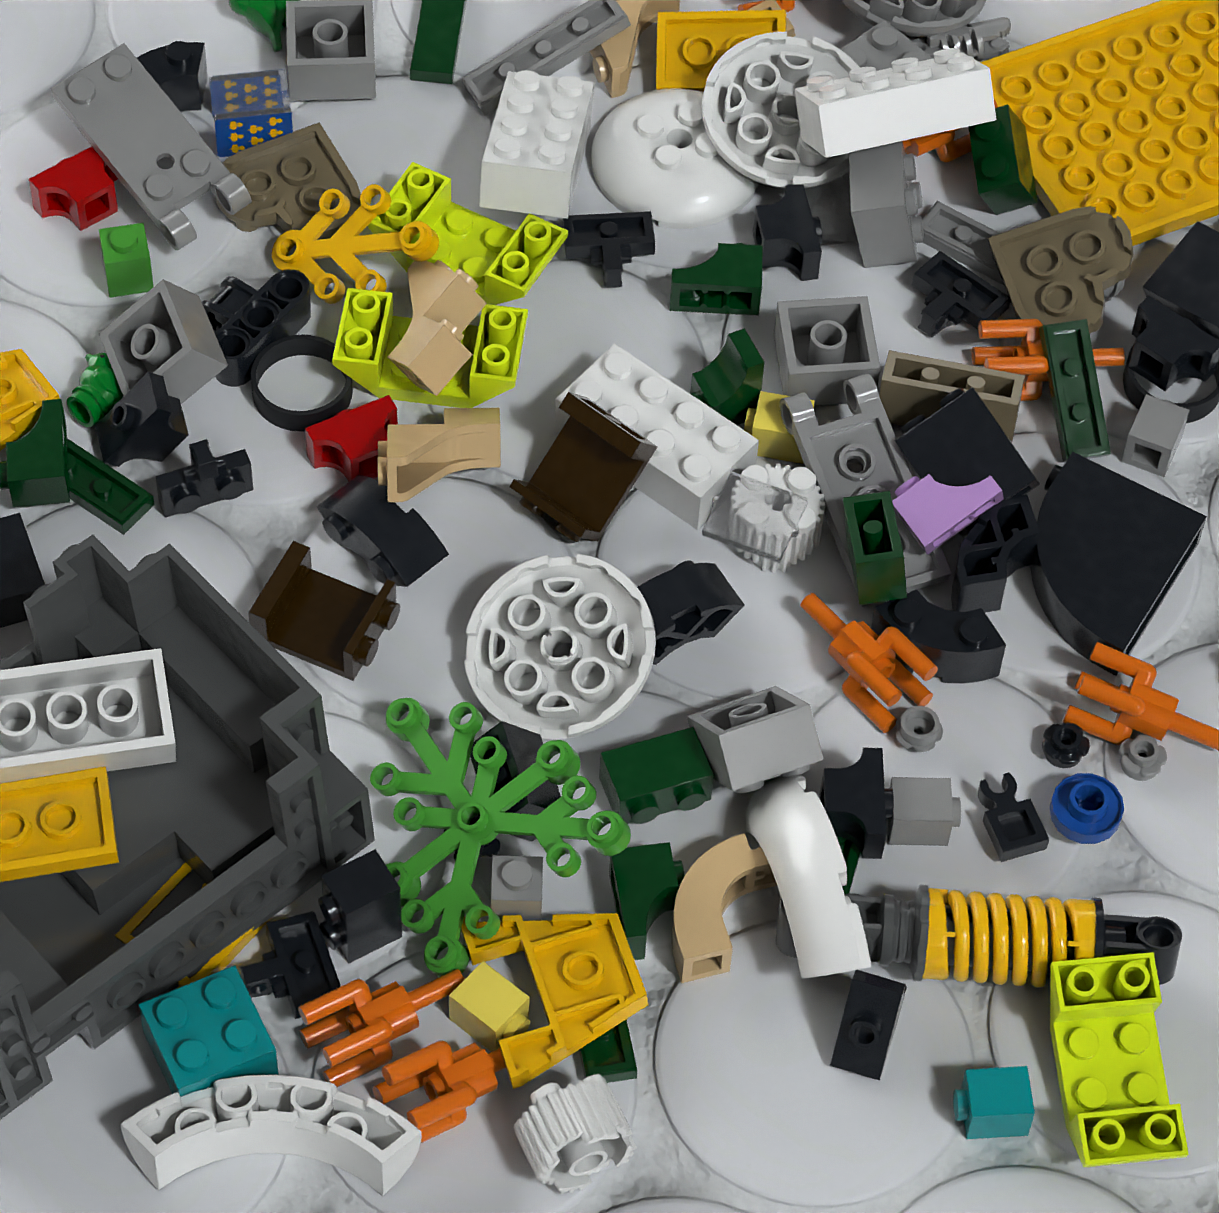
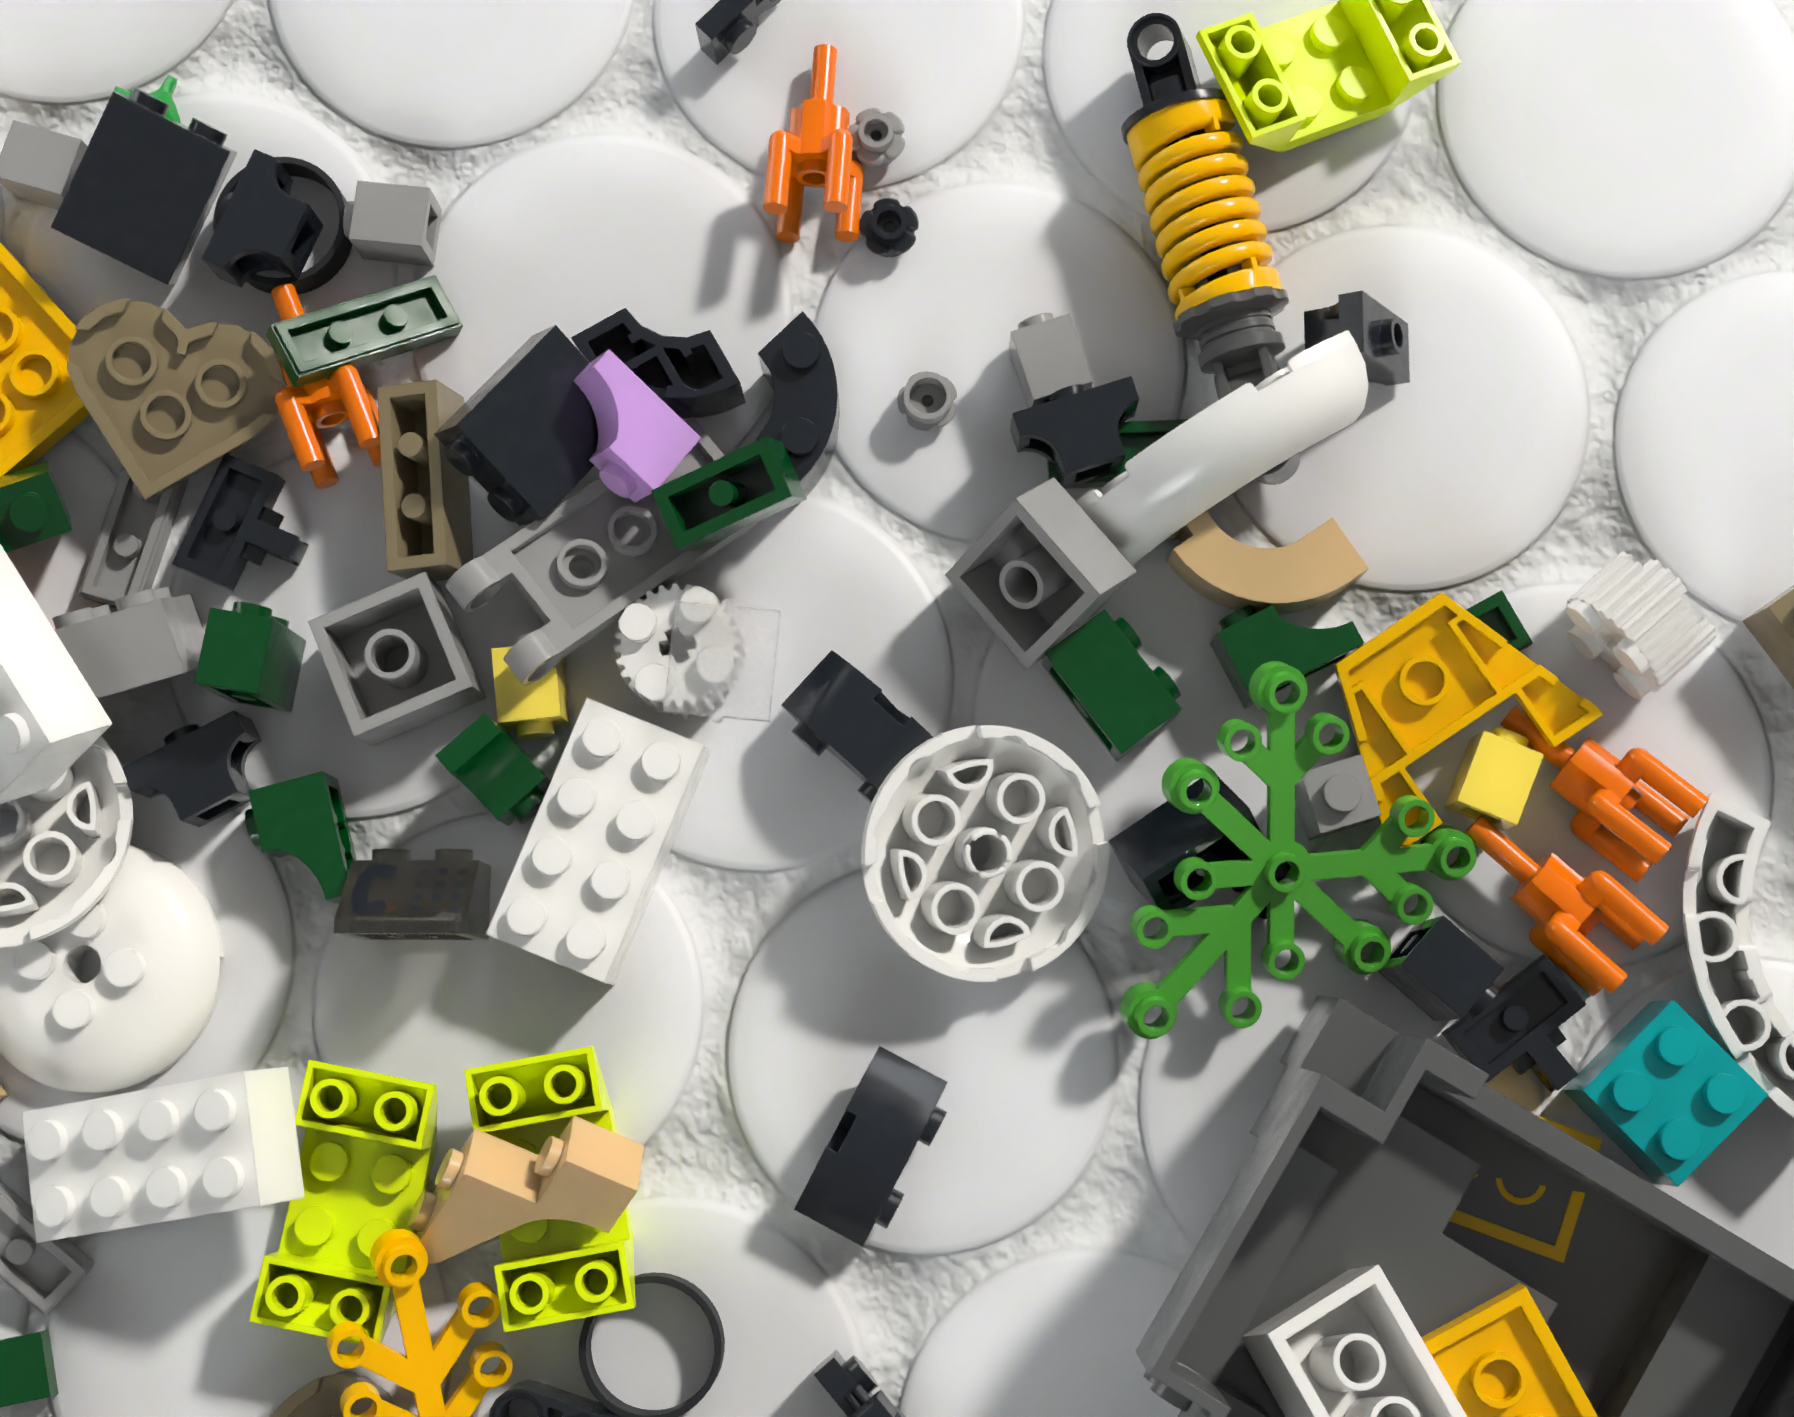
camera: 100 degrees left, 25 degrees up
(322, 616) = (1011, 1178): dark brown panel -> none
(351, 438) = (730, 1234): red brick -> none
(425, 453) = (749, 1130): tan arch -> none
(586, 470) = (699, 911): dark brown panel -> none
(609, 240) = (281, 1007): black hinge -> none
(656, 314) = (416, 897): none -> clear smoke slope
(854, 262) = (250, 657): none -> dark green brick
(872, 661) = (862, 476): orange plant -> none
(995, 1102) = (1401, 185): teal brick -> none
(1011, 824) = (1025, 256): black plate -> none
(1086, 808) = (981, 176): blue plate -> none
(1107, 554) = (605, 232): black brick -> none

